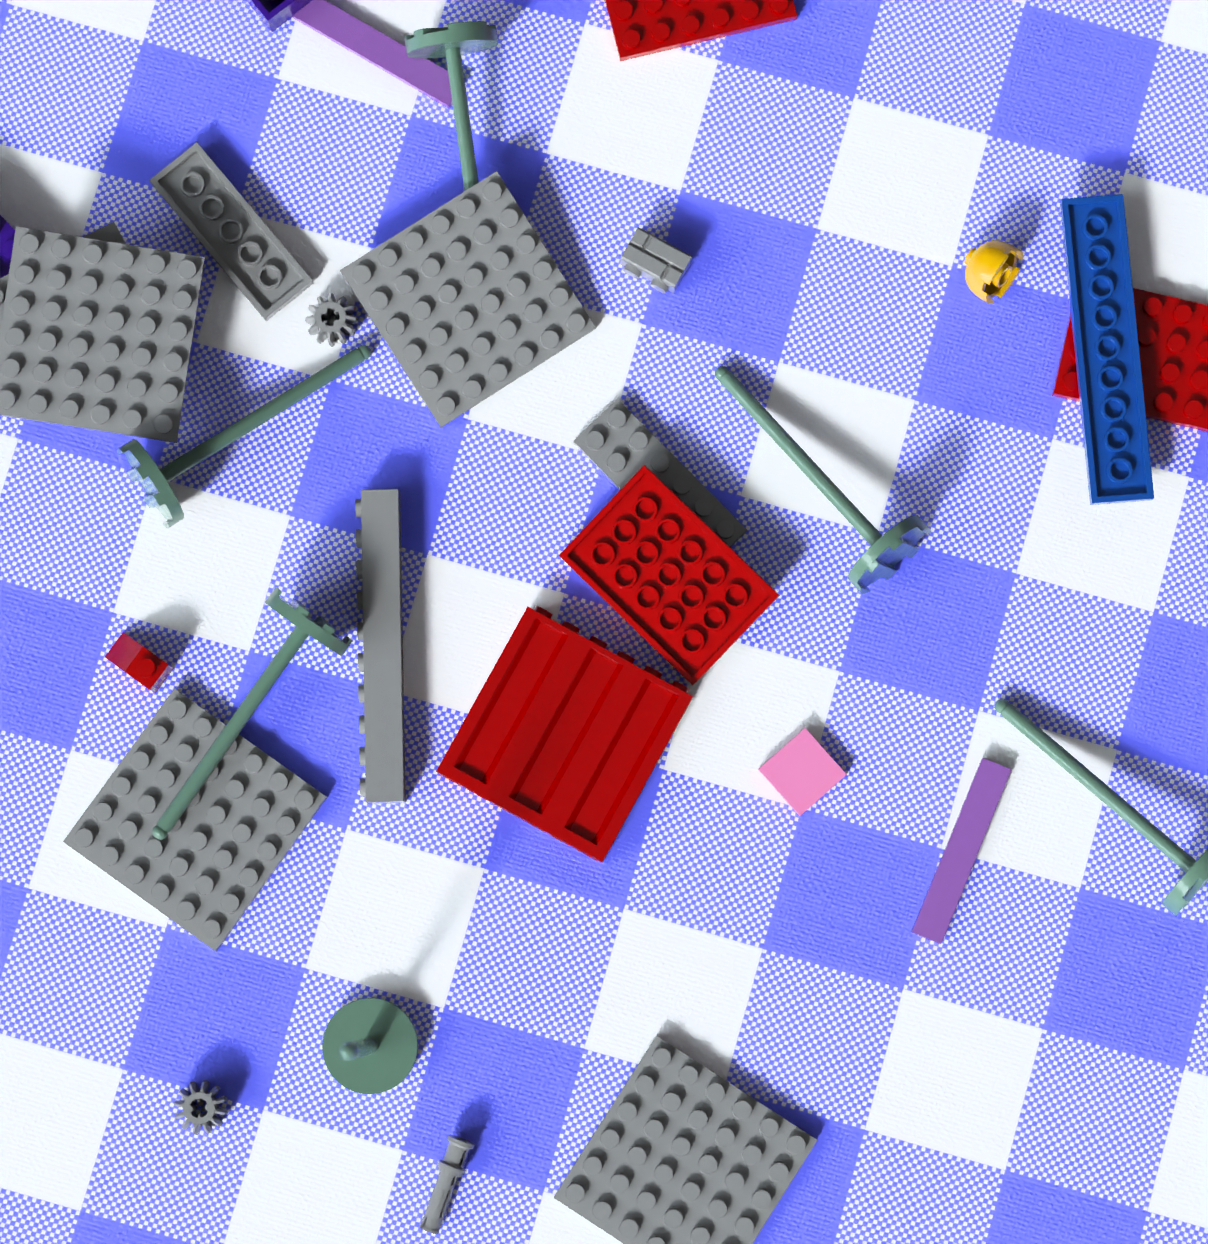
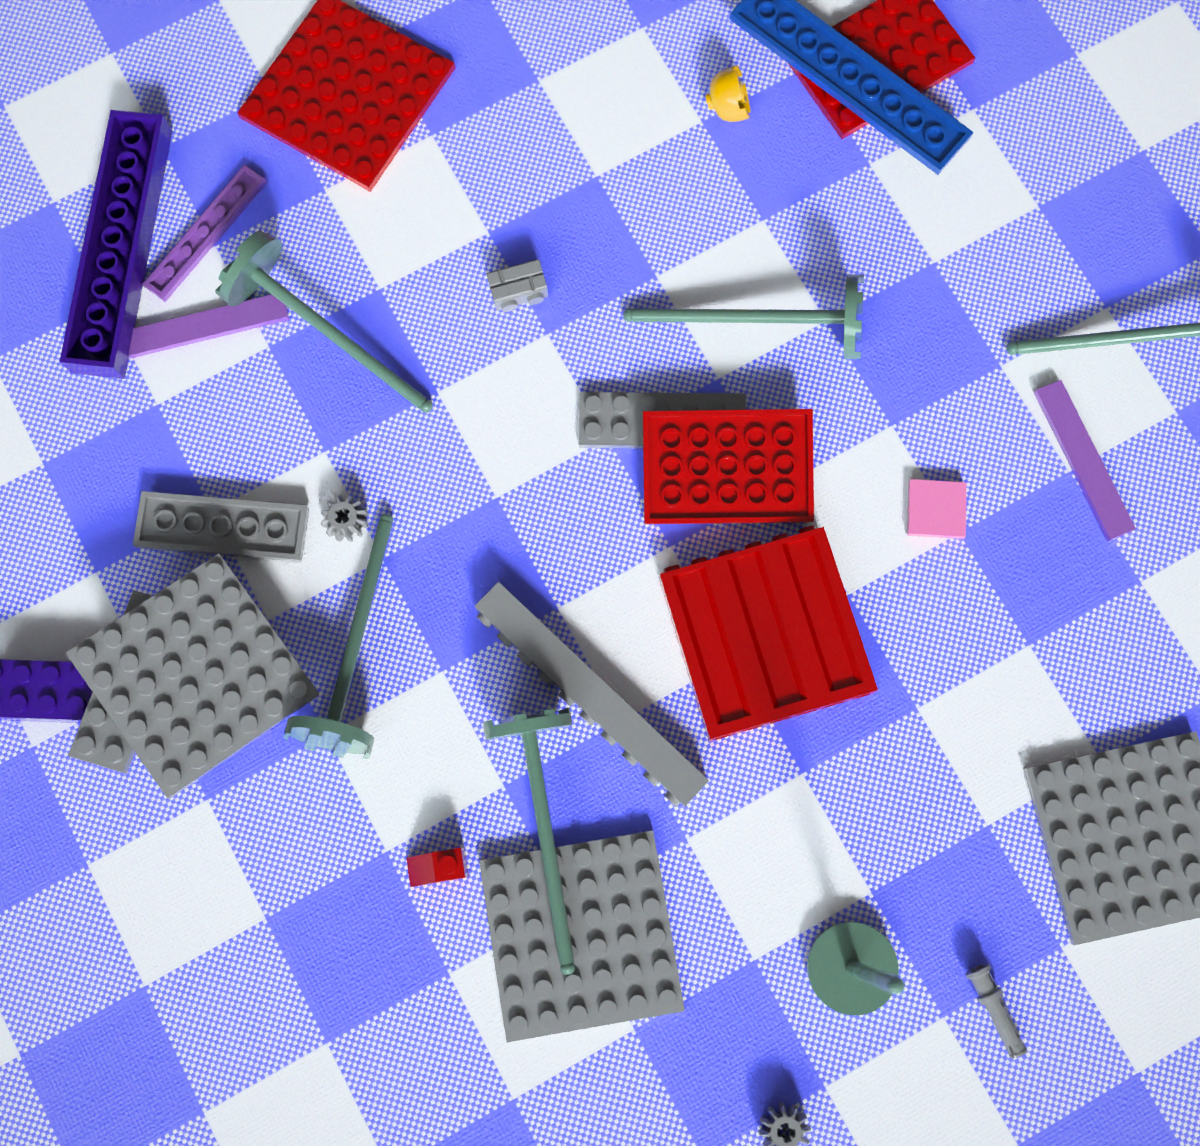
camera: 40 degrees left, 5 degrees down
(468, 299) = (421, 421): light grey plate -> none

